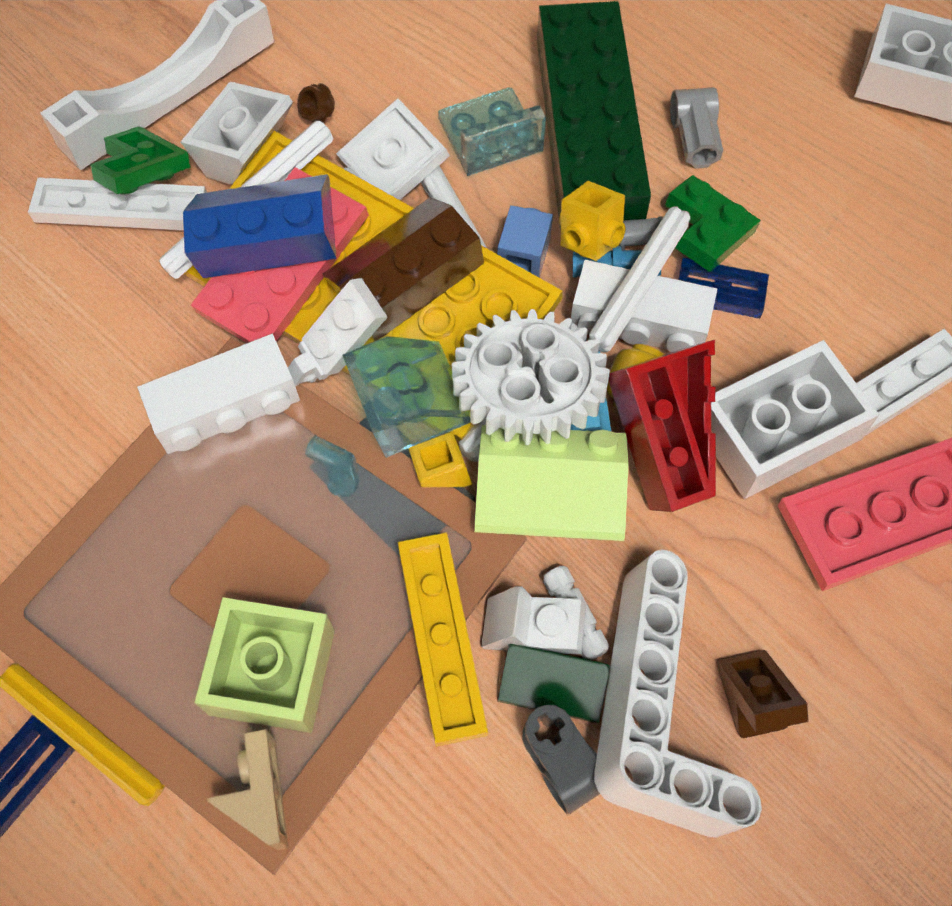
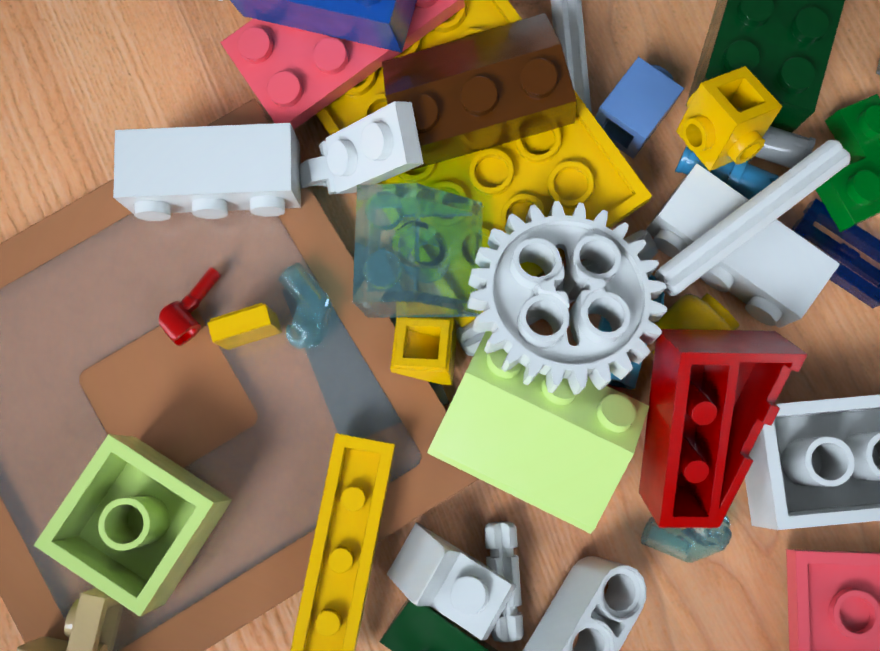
camera: 20 degrees right, 15 degrees up
(236, 513) = (177, 317): none -> red hand
(294, 494) = (244, 326): none -> yellow tile
(704, 528) = (687, 543): none -> clear light blue arm

